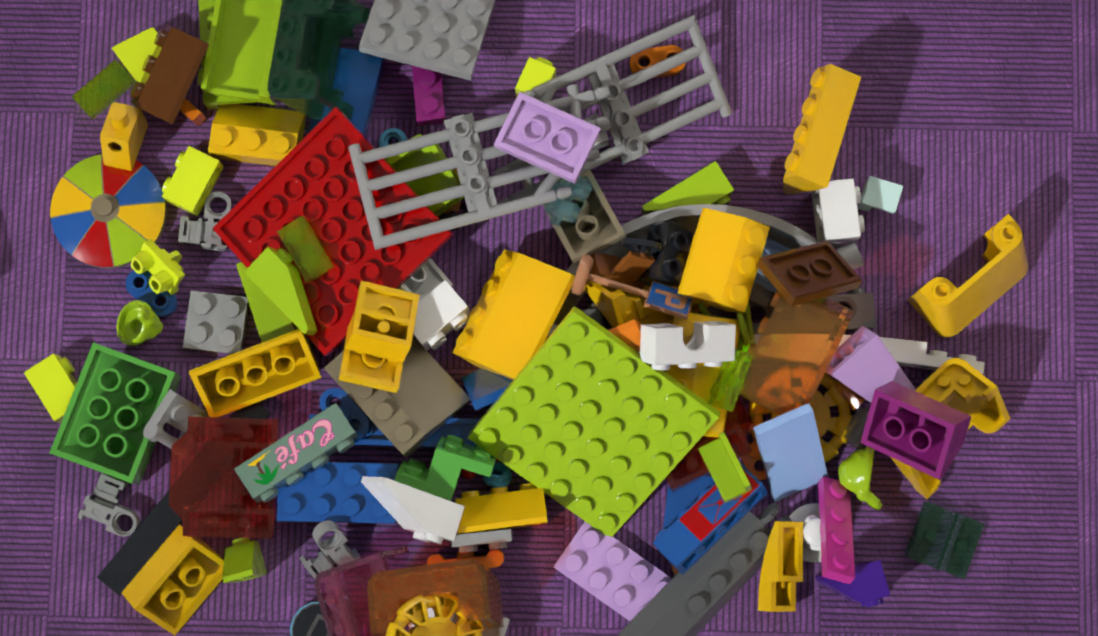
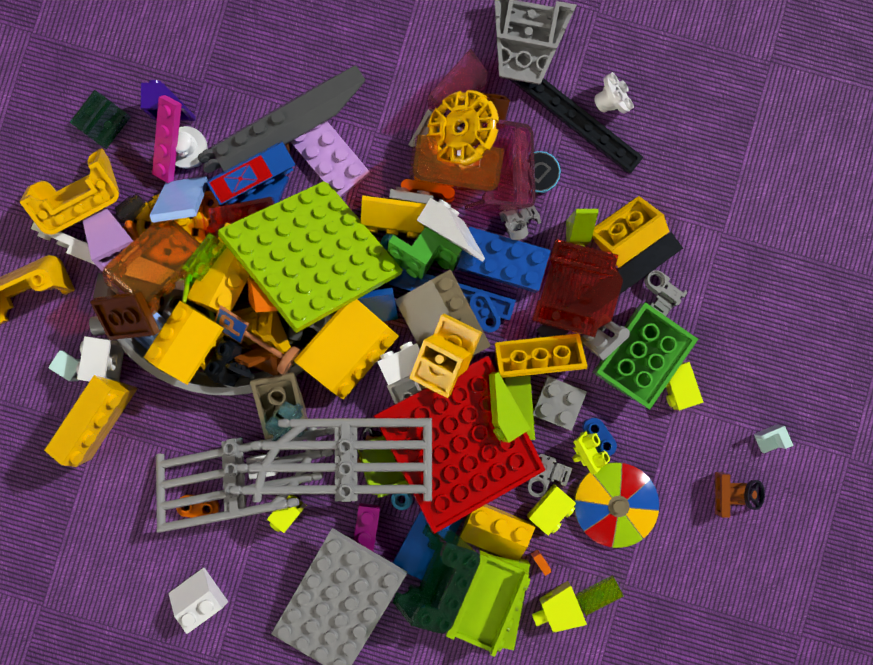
camera: 170 degrees left, 5 degrees up
(123, 127) = (592, 561): yellow torso -> none
(137, 323) = (614, 416): lime hat -> none
(168, 73) = (549, 592): reddish brown slope -> none
(296, 453) = (525, 290): sand green brick -> none
(305, 249) = (482, 435): clear neon green plate -> none
(547, 137) = (283, 465): lavender plate -> none
(703, 187) = (191, 404): lime slope -> none
(710, 344) = (236, 286): white arch -> none
(725, 468) = (228, 199): lime panel -> none
(781, 568) = (213, 126): yellow slope -> none
(856, 476) = (142, 175): lime hat -> none
(914, 429) = (85, 186): magenta slope -> none

